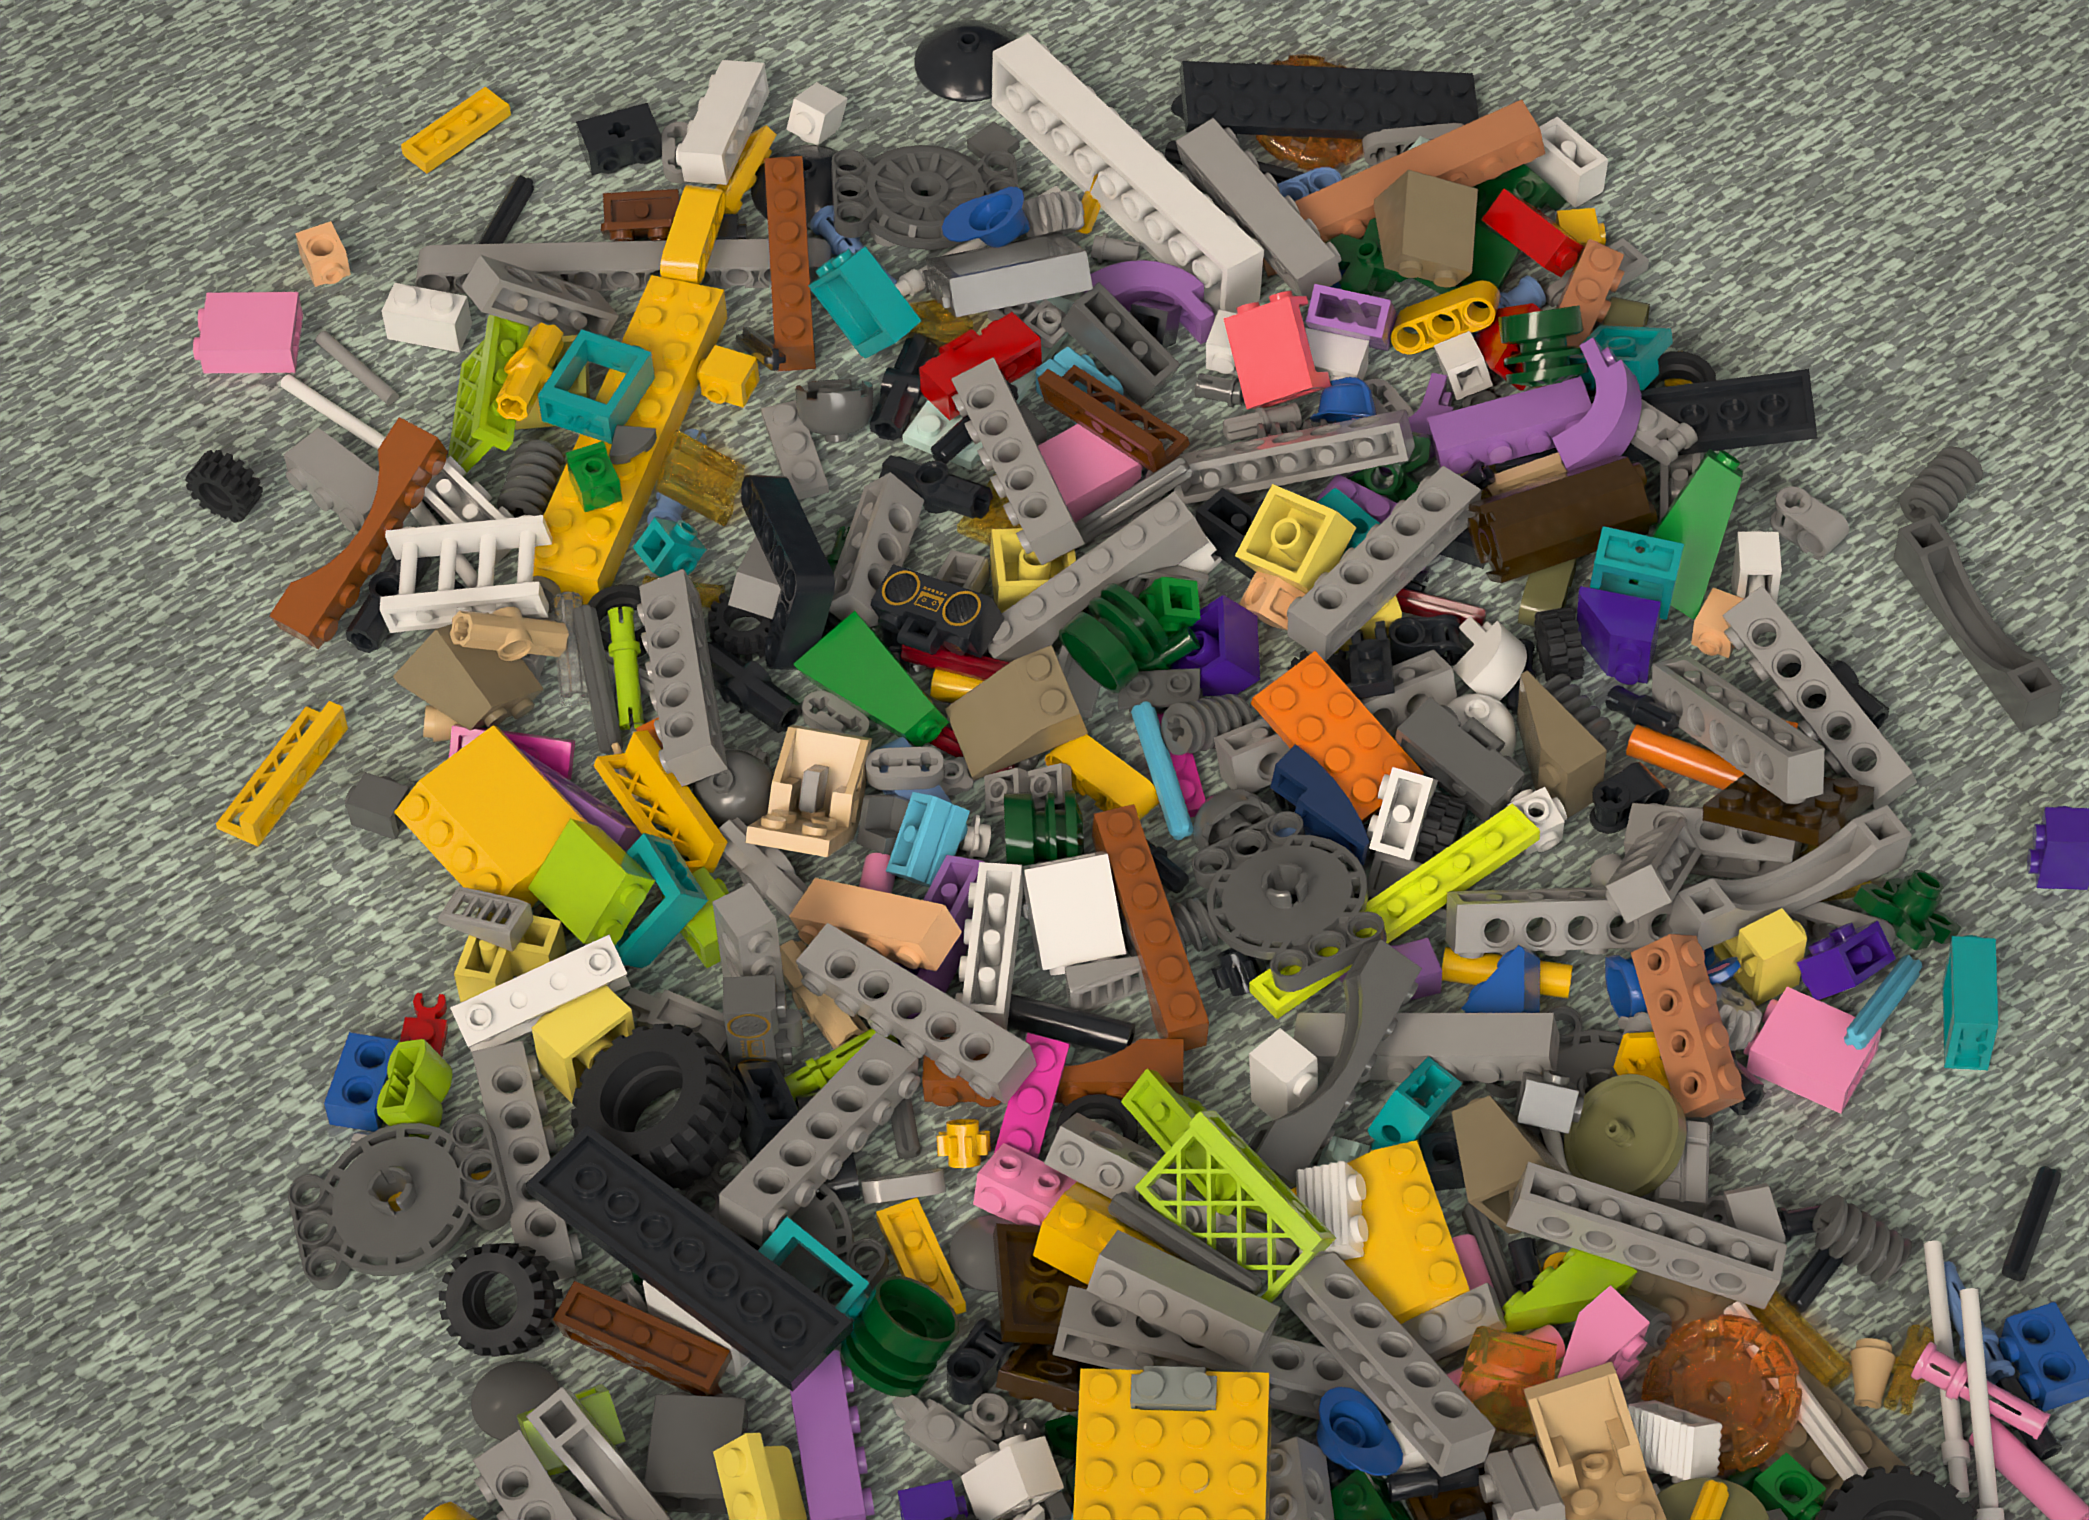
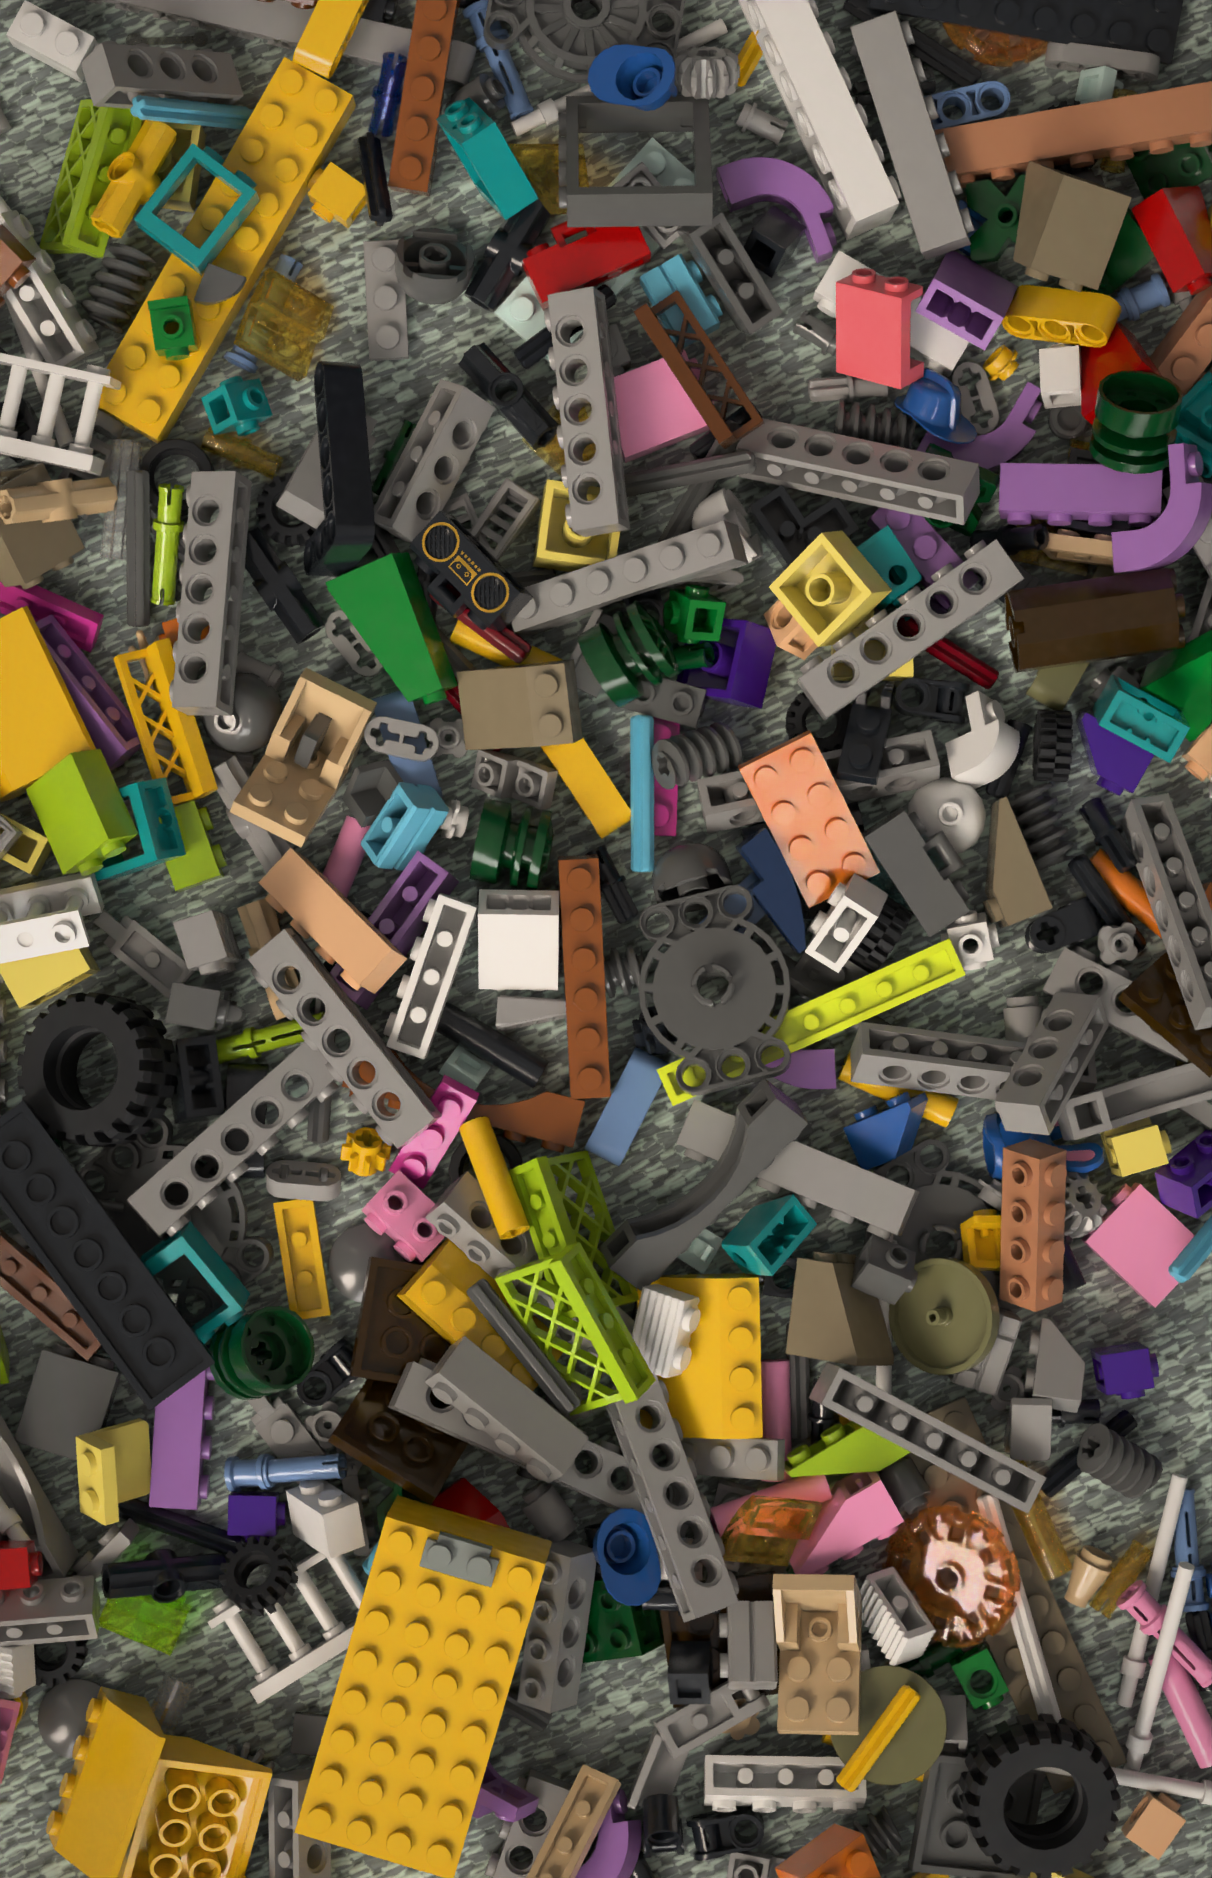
camera: 10 degrees right, 35 degrees up
(563, 317) = (190, 112): none -> medium azure axle
(756, 289) = (387, 94): none -> clear blue pin
(937, 1464) = (268, 1471): none -> medium blue pin
(1108, 1108) = (494, 1178): none -> yellow piece
(1227, 1047) = (626, 1107): none -> medium blue beam
(1281, 1074) = (663, 1171): white brick -> none
(1403, 376) = (1001, 363): none -> yellow plate
(1661, 764) = (1102, 896): none -> black axle
(1678, 794) = (1106, 943): none -> light grey plate
(1761, 1162) = (1056, 1370): none -> light grey slope
(1832, 1153) = (1124, 1369): none -> dark purple brick

